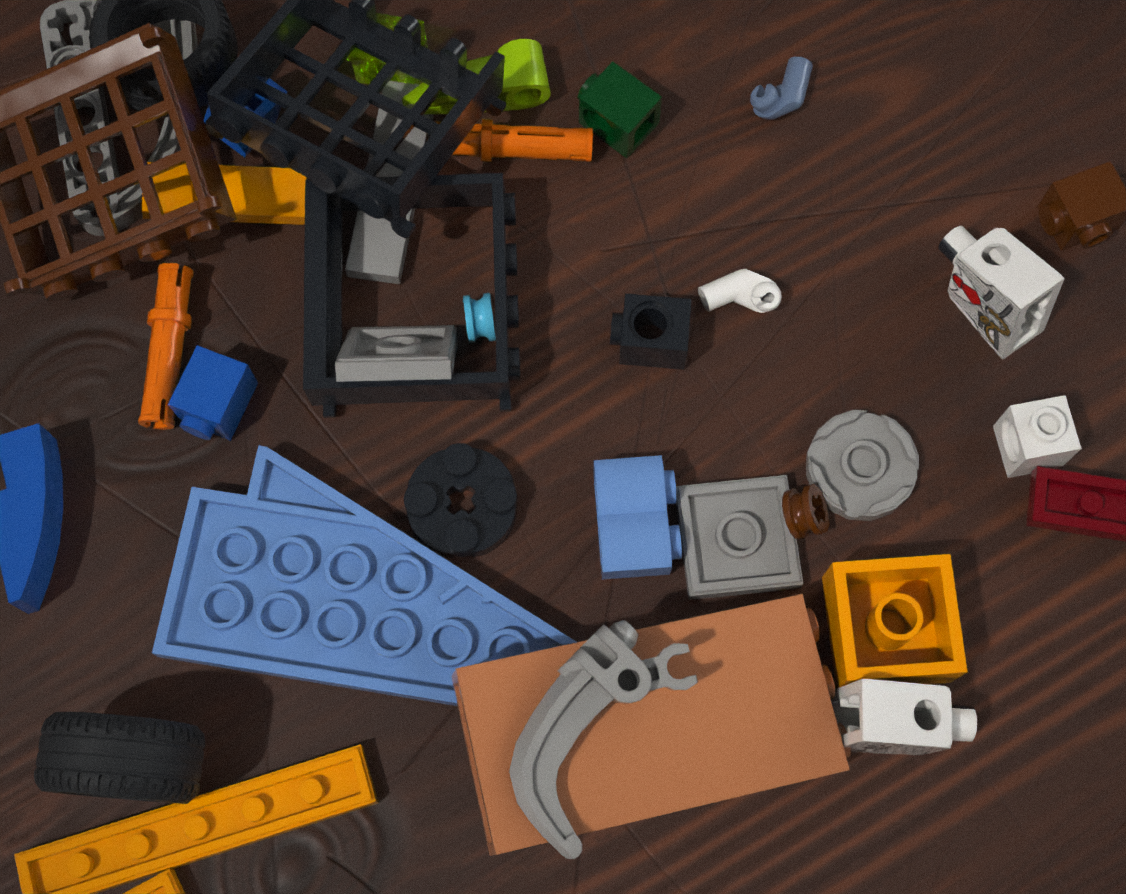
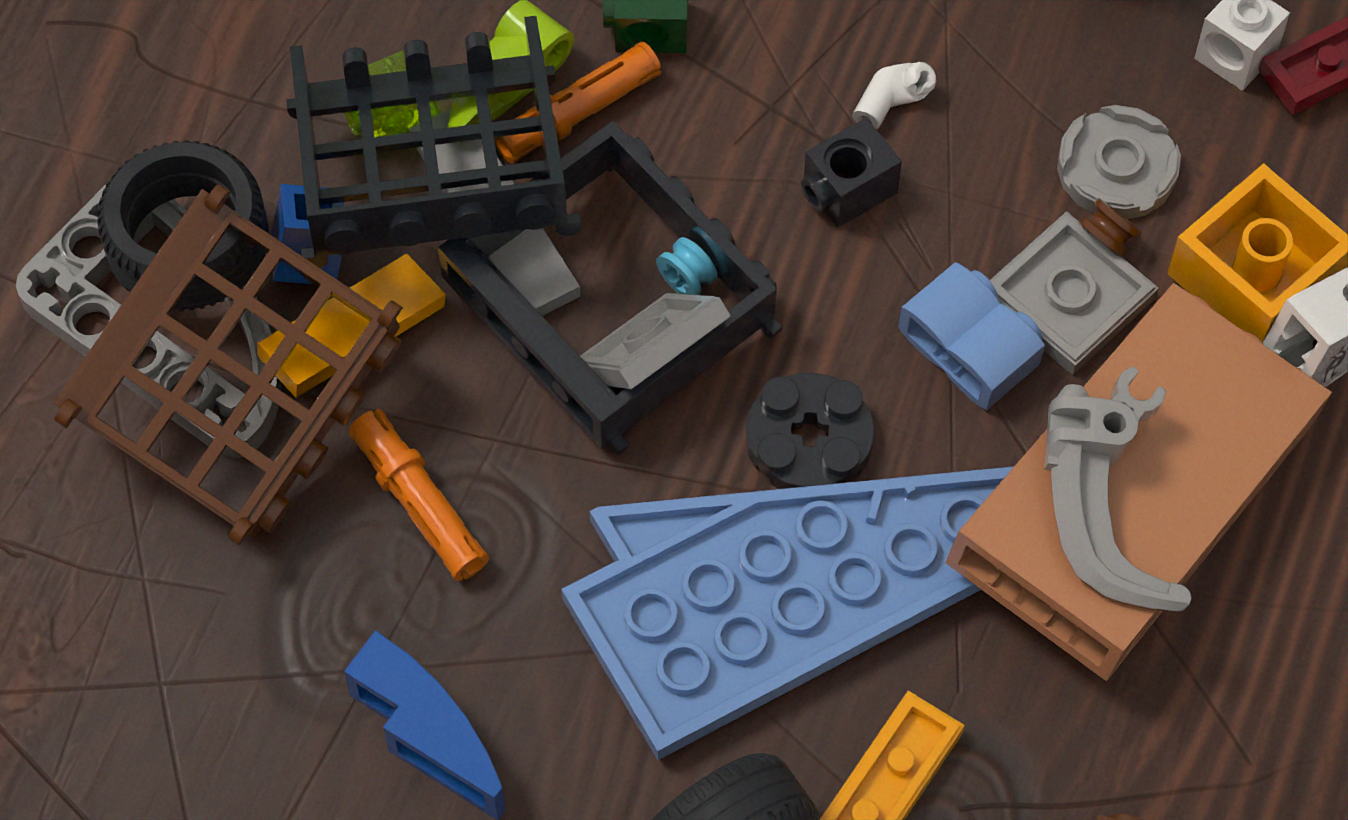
camera: 40 degrees left, 10 degrees down
(212, 394) = (505, 500): blue brick -> none

